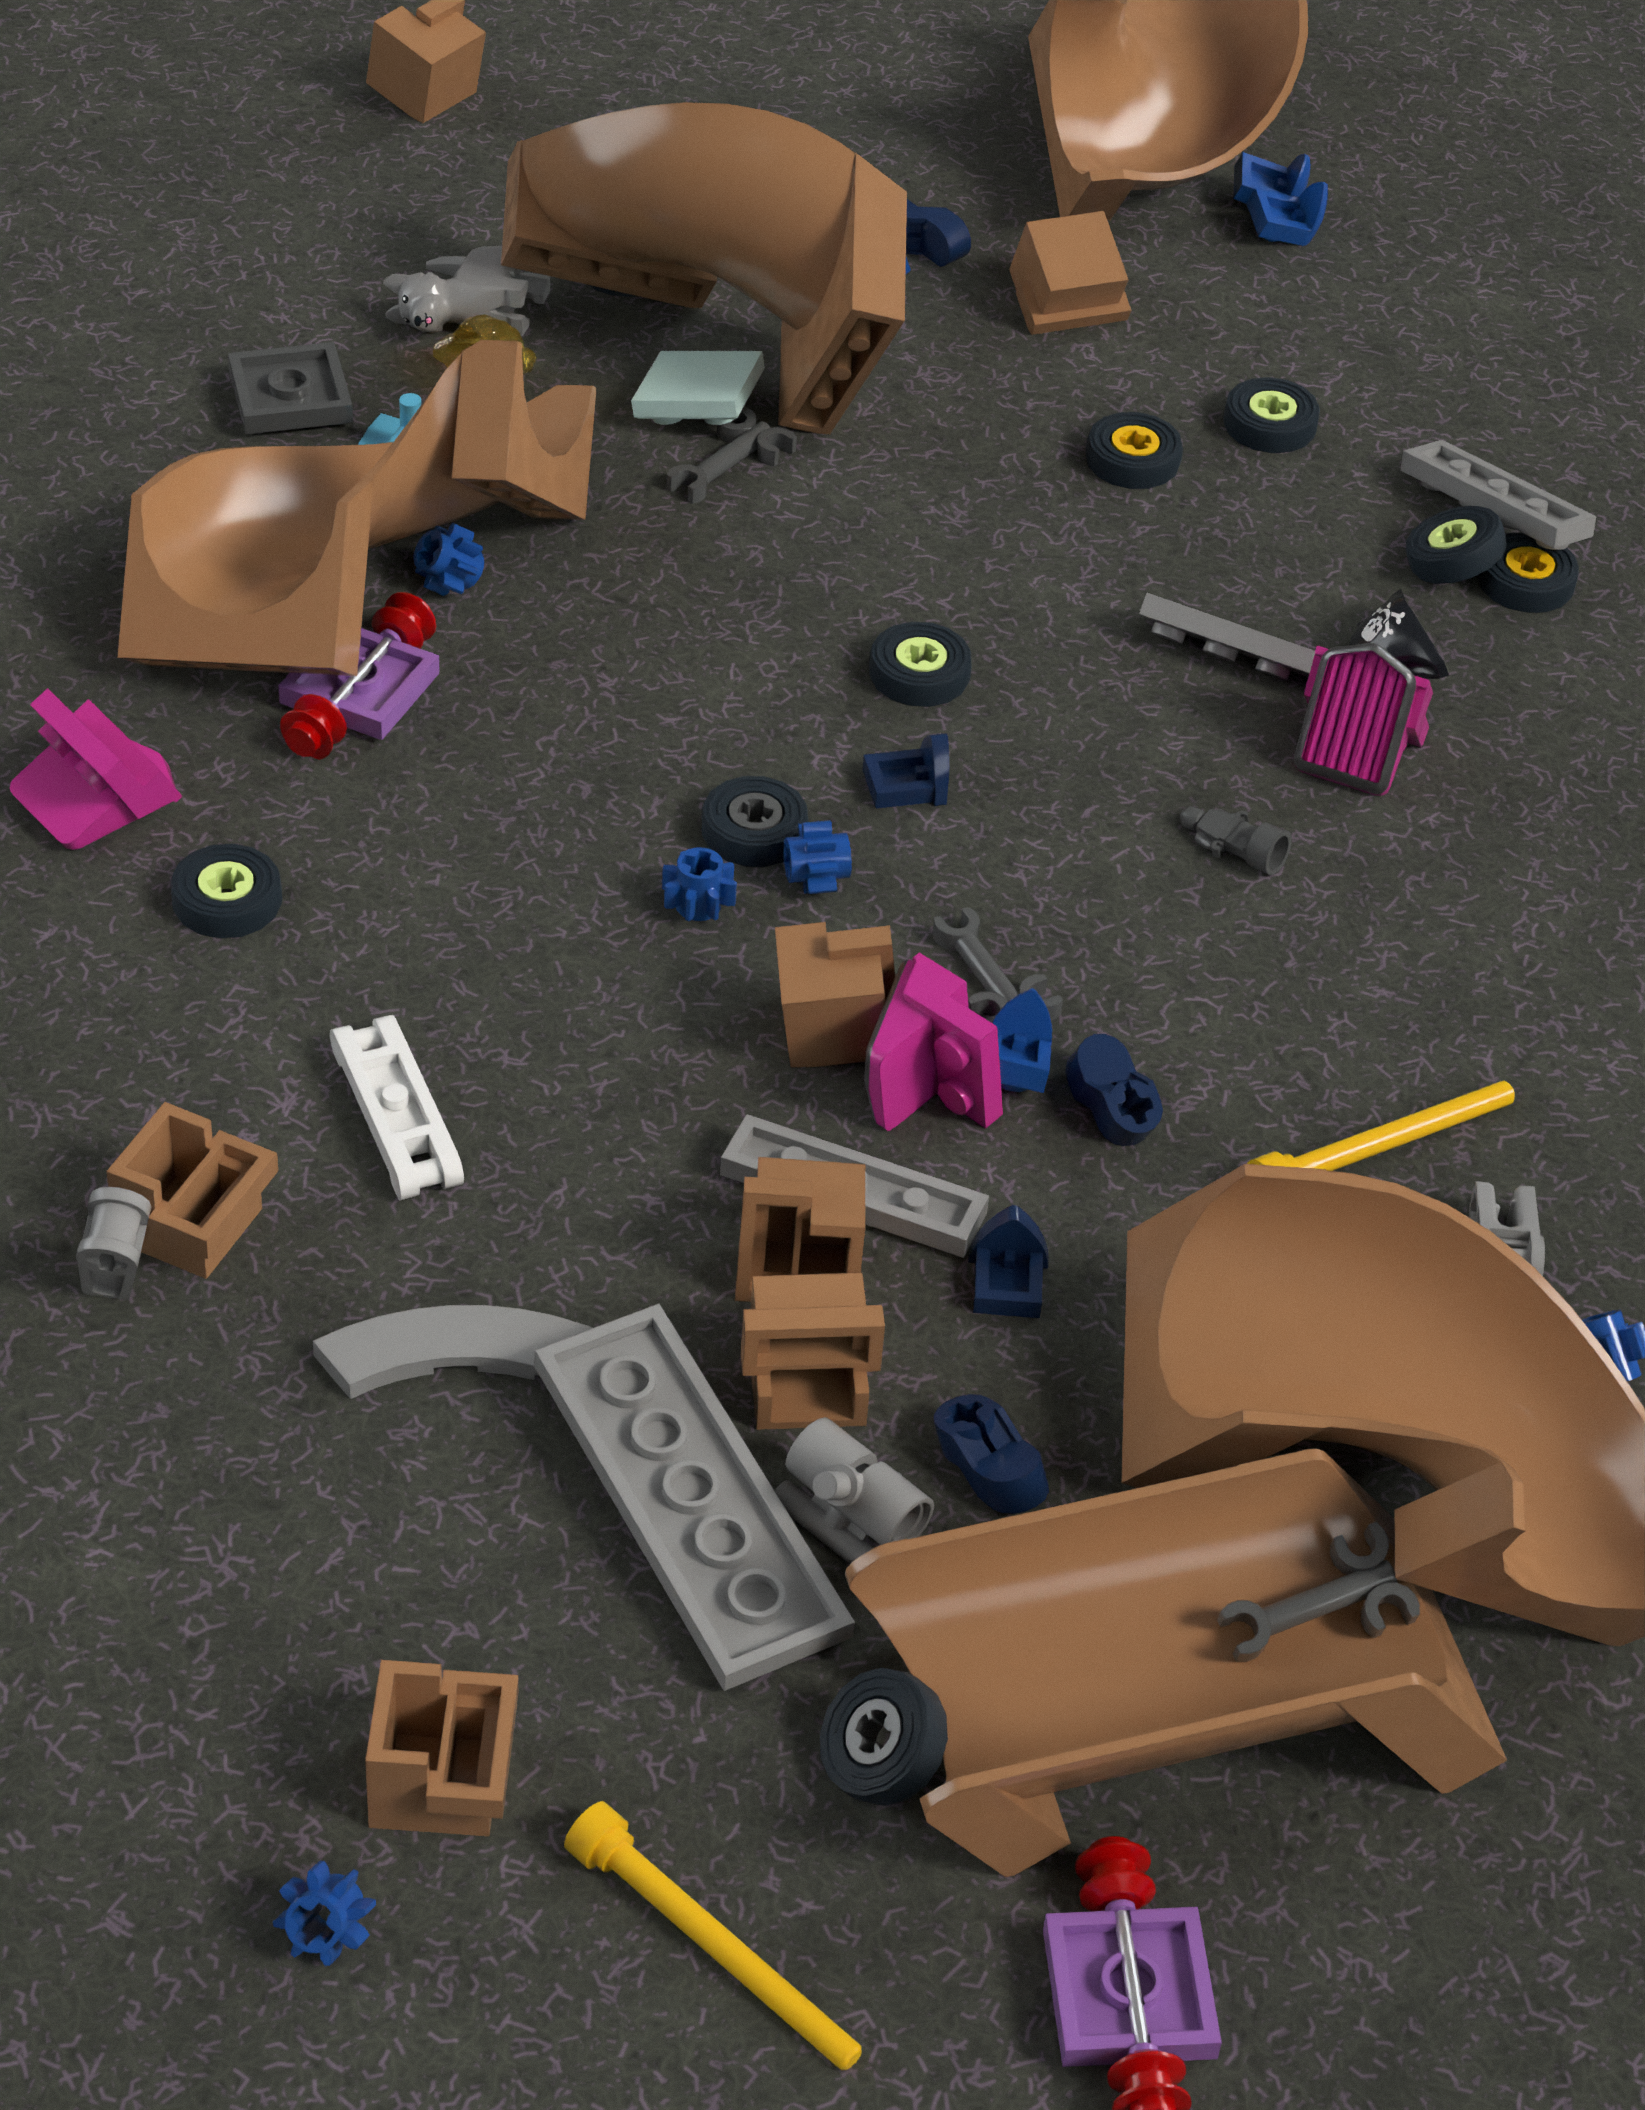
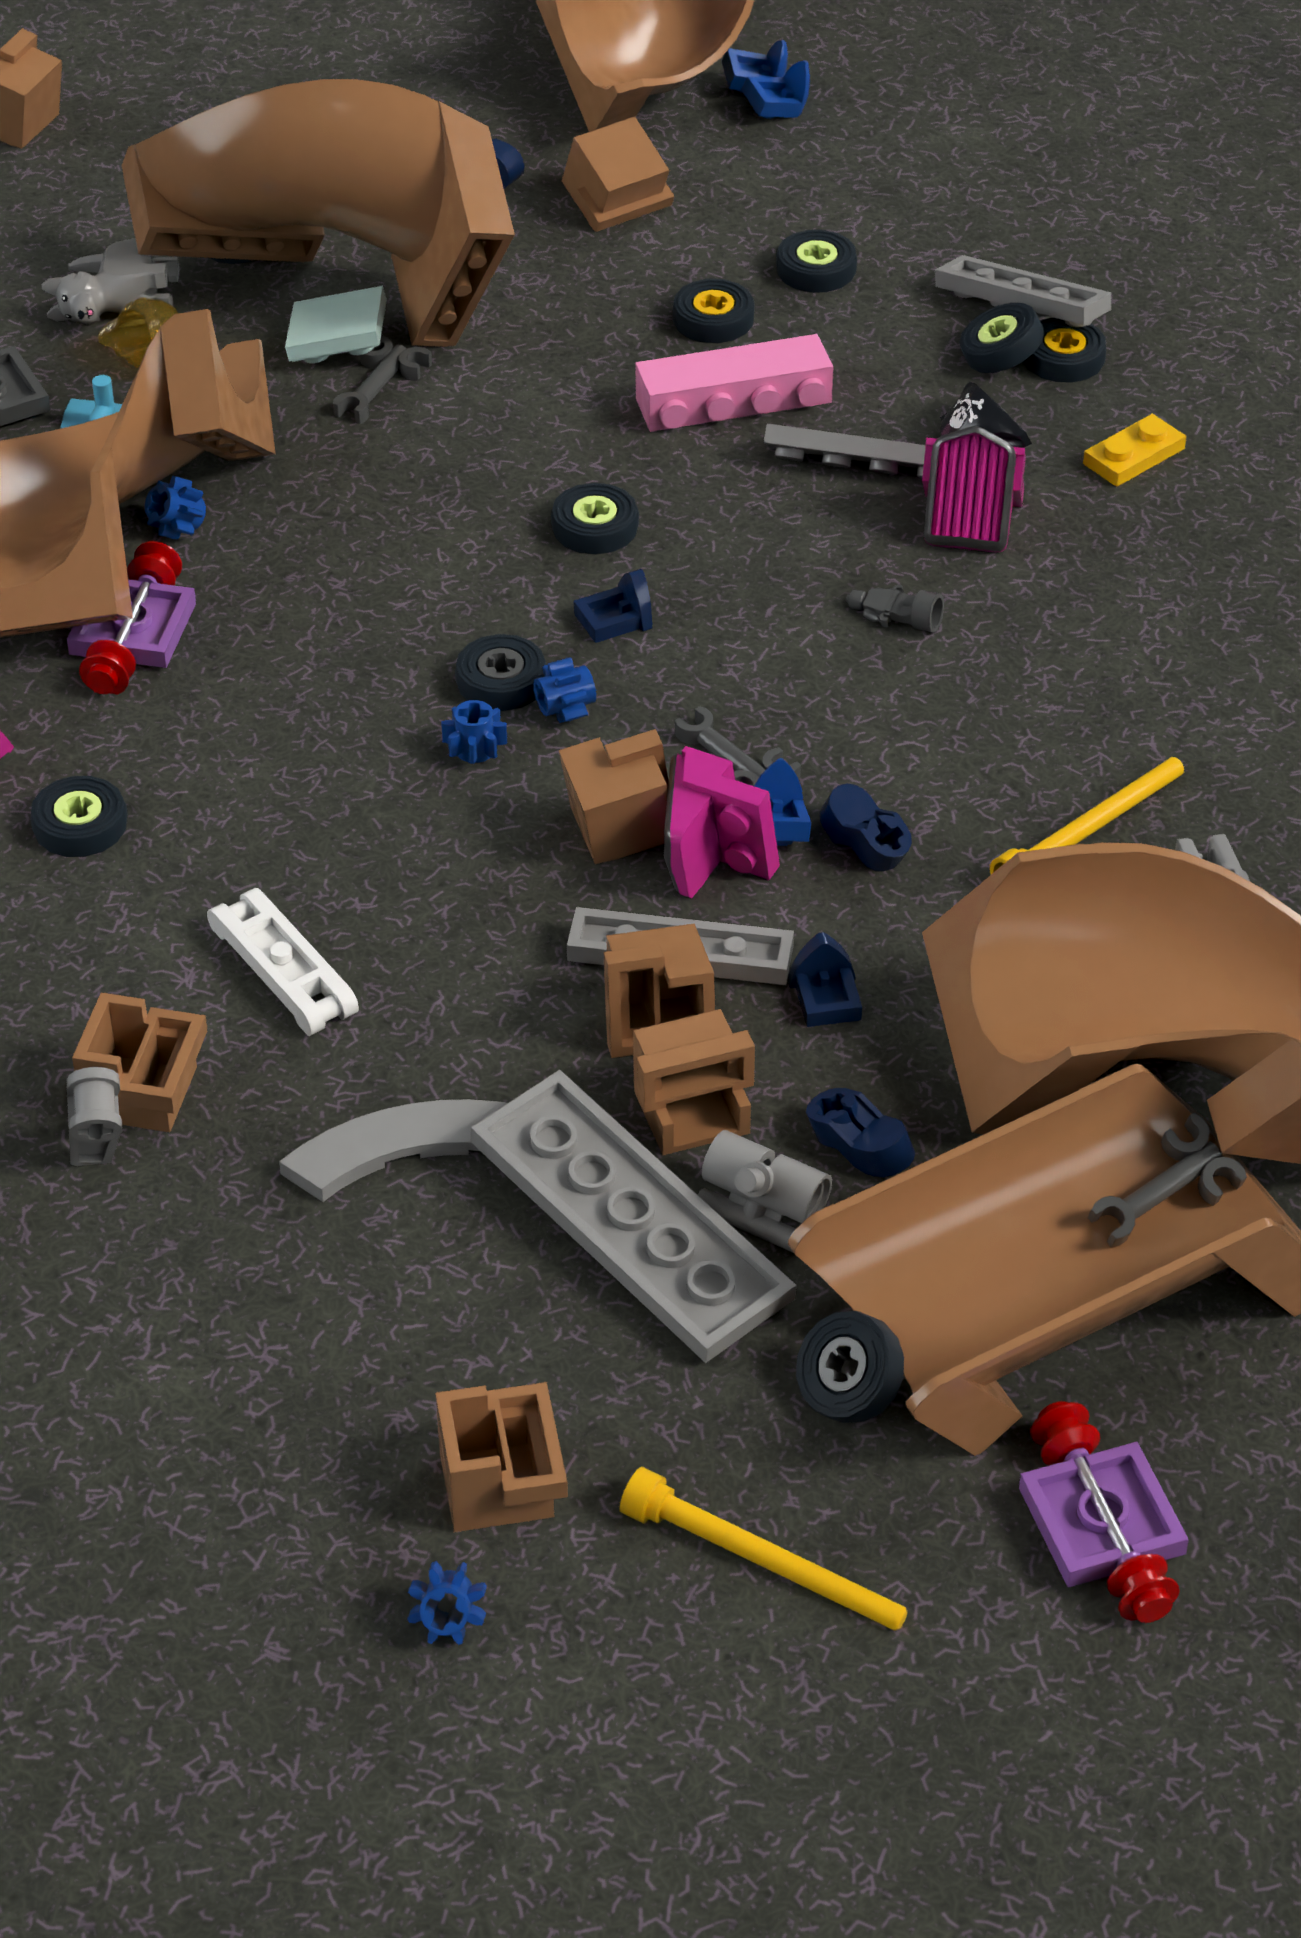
camera: 10 degrees left, 0 degrees up
(1129, 537) = (734, 382): none -> bright pink brick
(1574, 706) = (1134, 450): none -> yellow plate

